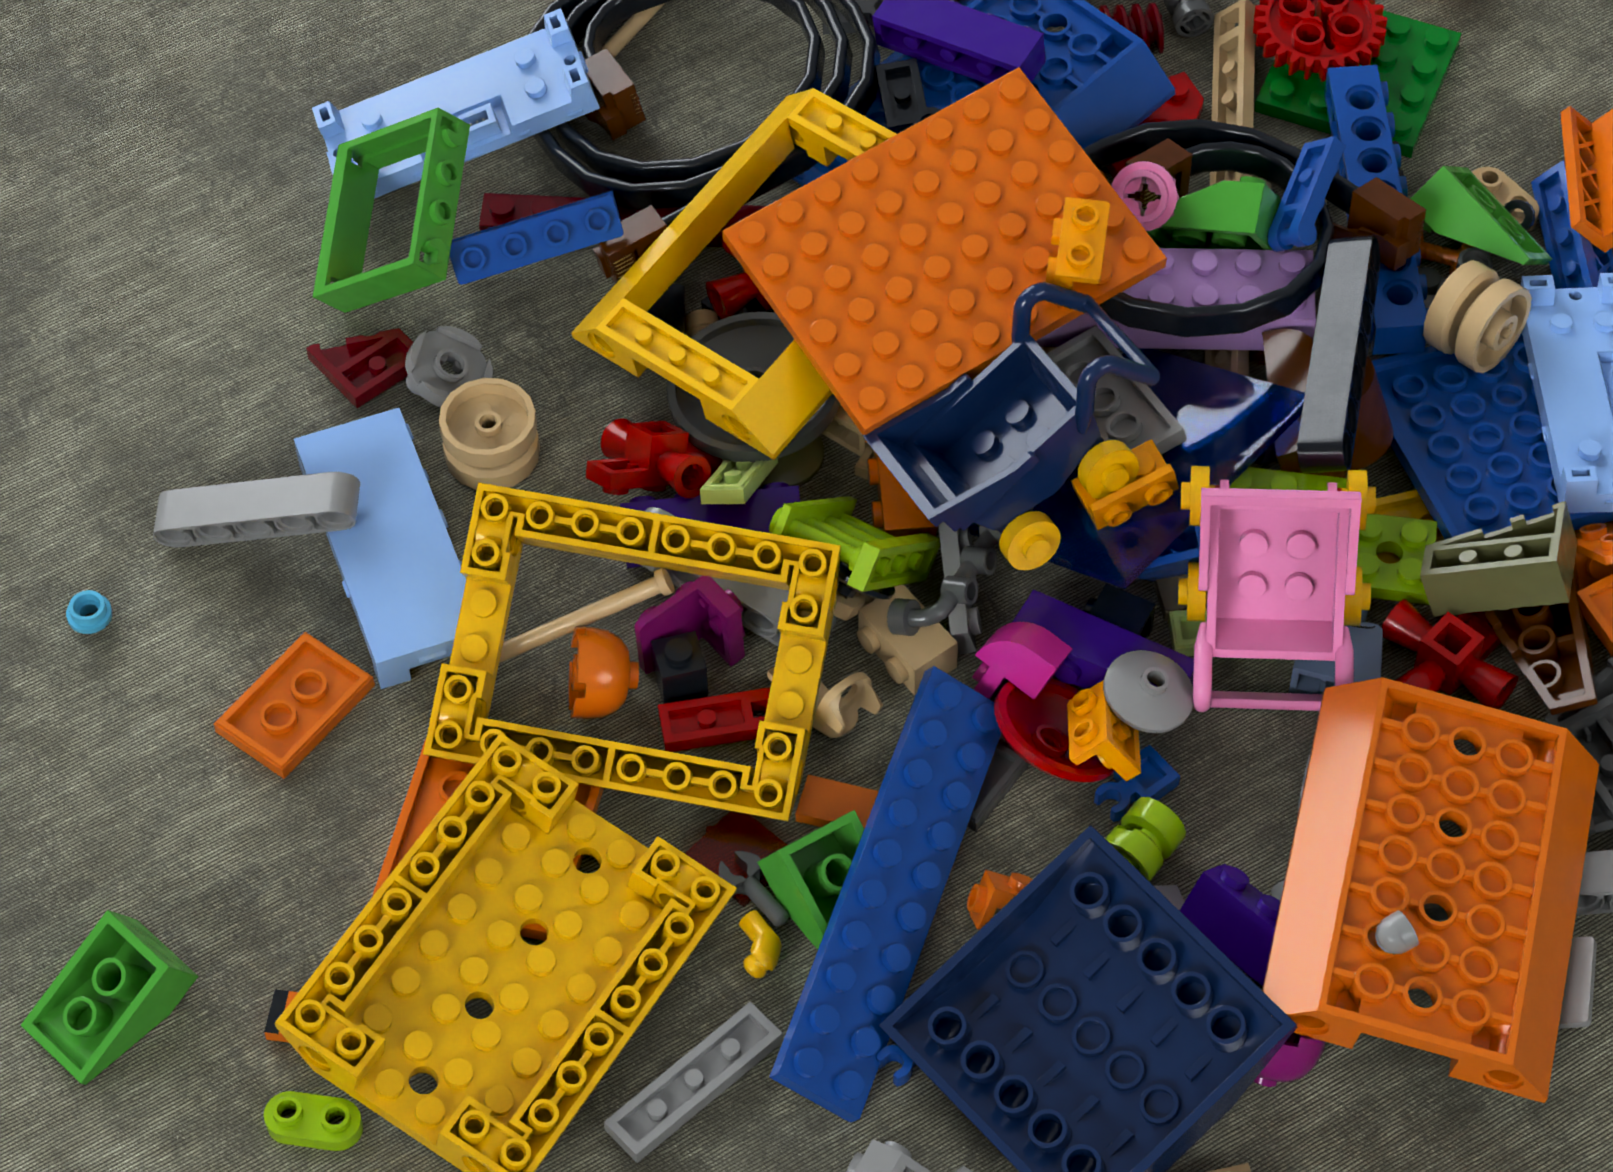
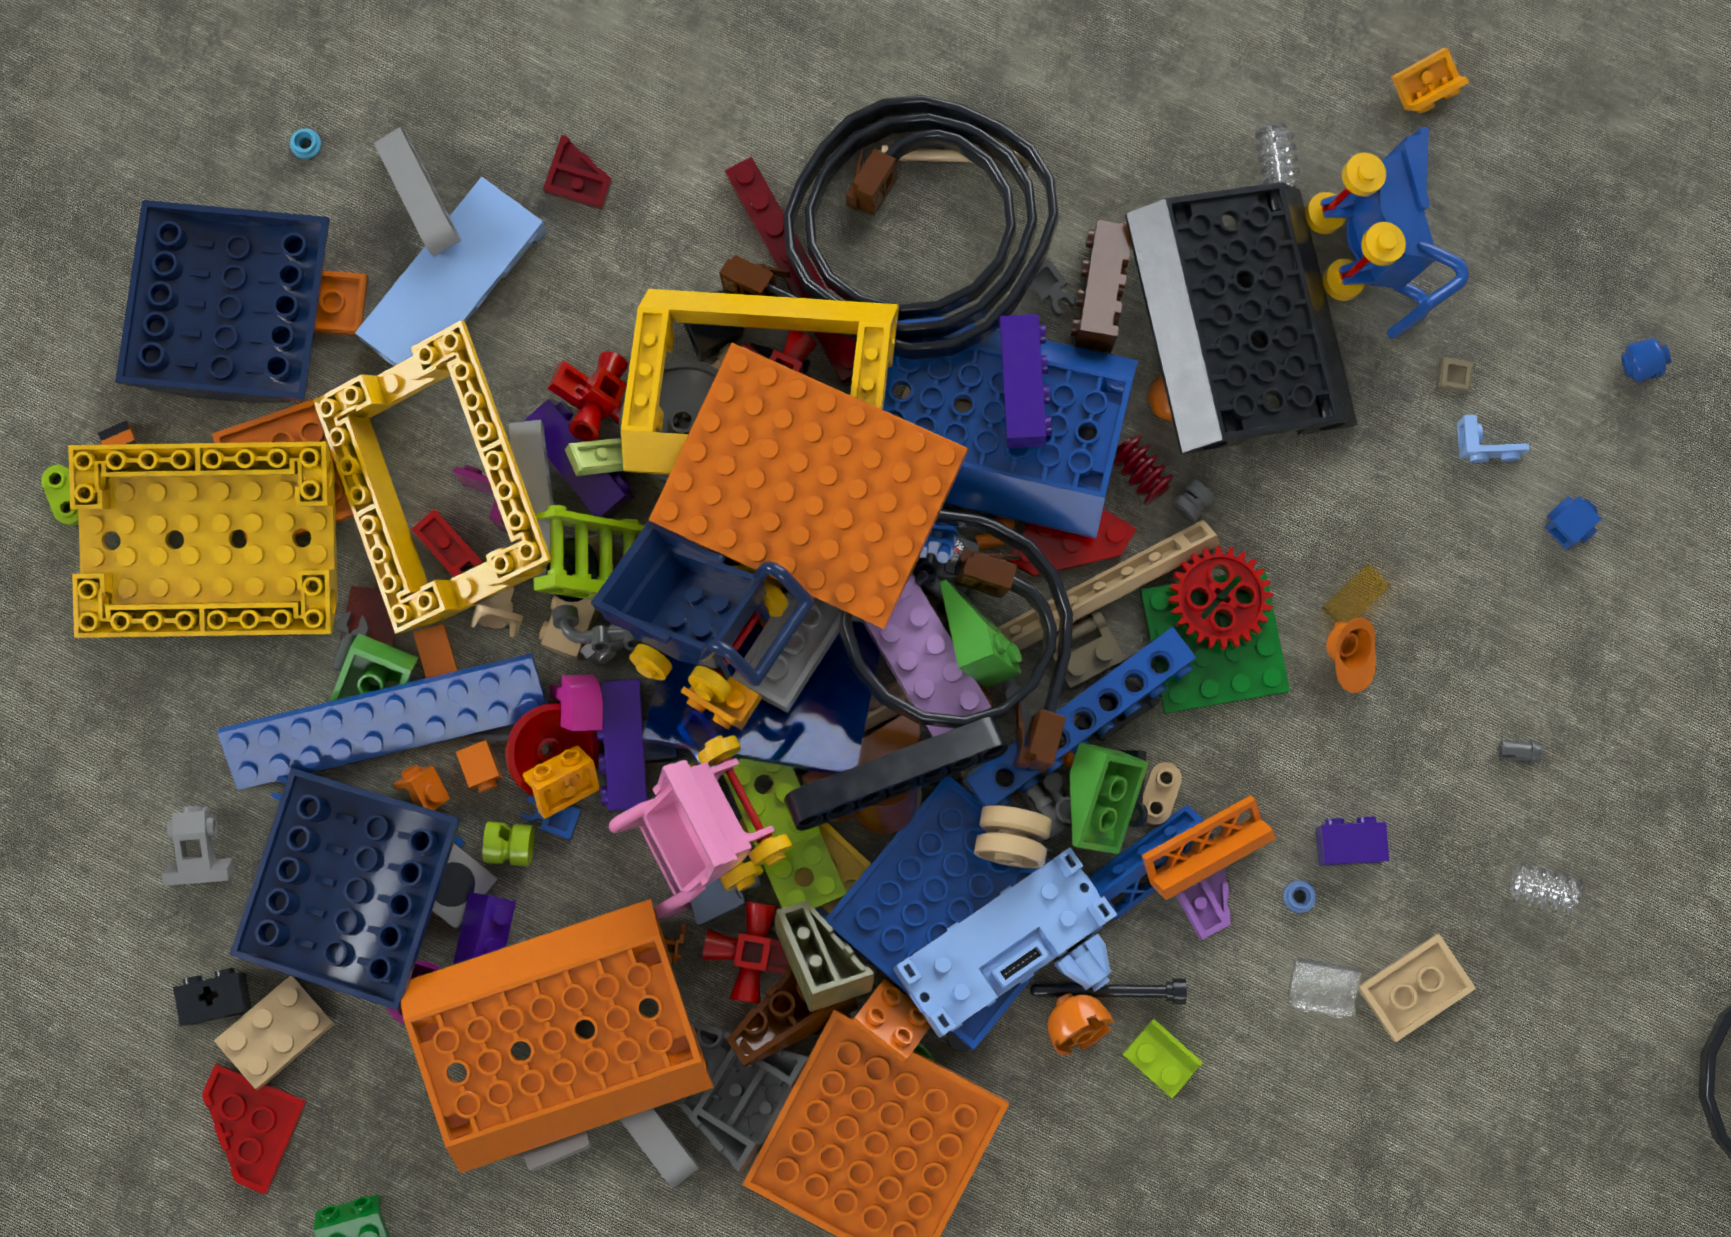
camera: 55 degrees right, 25 degrees up
(108, 996) = (68, 335): bright green slope -> none
(225, 781) = (222, 302): none -> dark blue slope
(352, 201) = (653, 102): bright green window -> none
(433, 350) = (613, 236): light grey plate -> none
(489, 433) = (556, 268): tan wheel -> none
(499, 93) = (791, 100): light blue piece -> none
(536, 238) = (712, 218): blue fence -> none
(589, 614) = (447, 424): tan bar -> none
(599, 673) = (429, 463): orange cylinder -> none
(679, 668) = (466, 505): black brick -> none
(693, 1082) = (205, 685): light grey plate -> none
(765, 946) = (315, 670): yellow arm -> none
(902, 94) = (957, 376): black hinge -> none
(1020, 825) = (480, 766): none -> orange brick
(1080, 242) = (835, 575): light orange bracket -> none
(1139, 702) = (599, 775): light grey dish -> none
(1159, 181) = (940, 576): bright pink gear -> none
(1305, 194) = (1015, 681): blue plate -> none
(1396, 934) = (476, 1039): light grey hinge -> none

